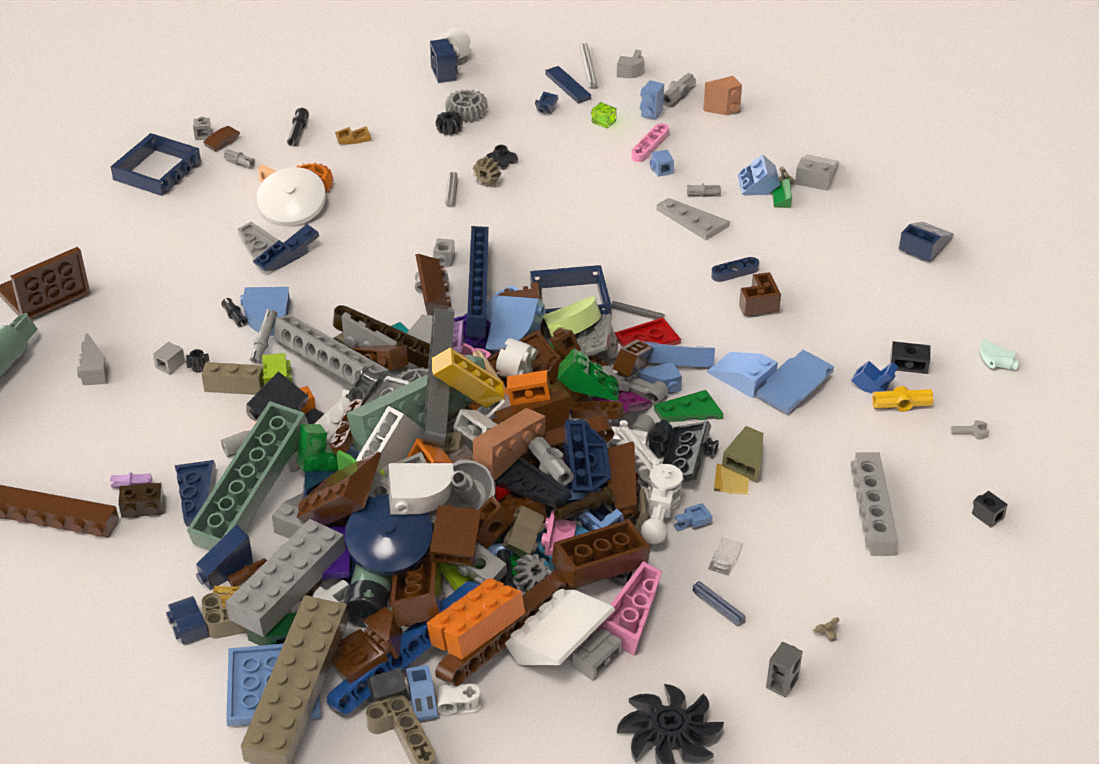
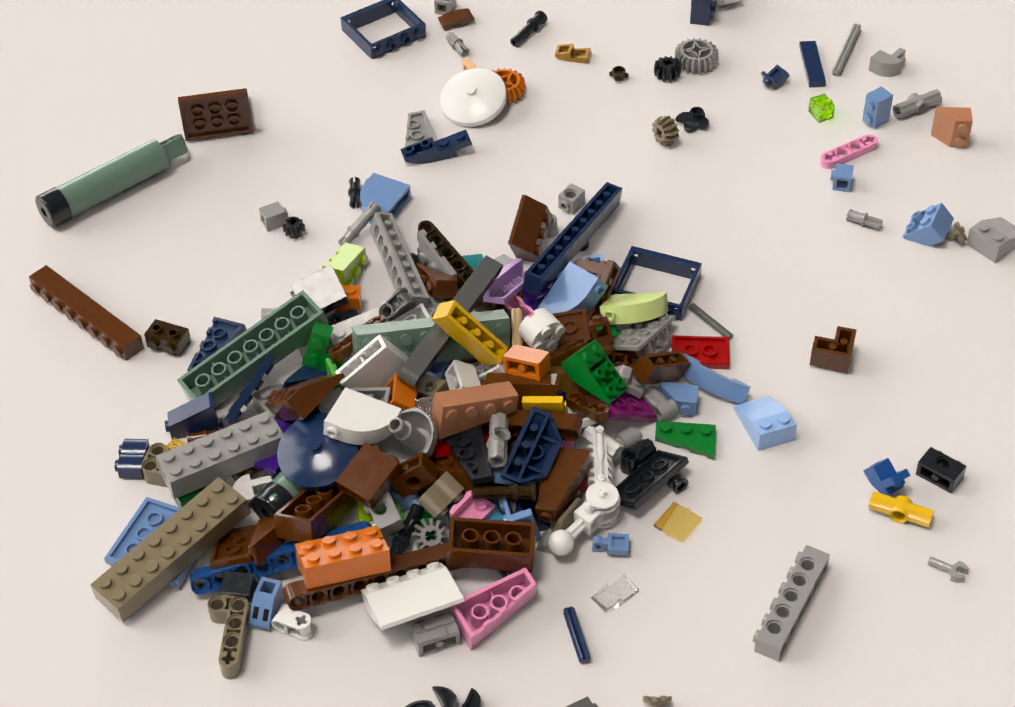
camera: 30 degrees right, 5 degrees up
(92, 364) = (209, 200): light grey slope -> none
(130, 479) = (172, 316): lavender axle -> none
(232, 378) = (306, 252): dark tan brick -> none
(269, 516) = (245, 396): none -> dark blue wing
(407, 139) = (618, 73): none -> dark brown plate
(451, 189) = (624, 137): light grey axle -> none
(558, 419) = (545, 403): none -> yellow slope
(695, 220) = (833, 246): light grey wing -> none
(724, 271) = (849, 318): dark blue beam -> none
(745, 453) = (705, 502): olive slope -> none
(782, 194) = (942, 251): green slope -> none
(794, 381) = (806, 449): medium blue piece -> none
(989, 508) = (901, 663): black brick -> none

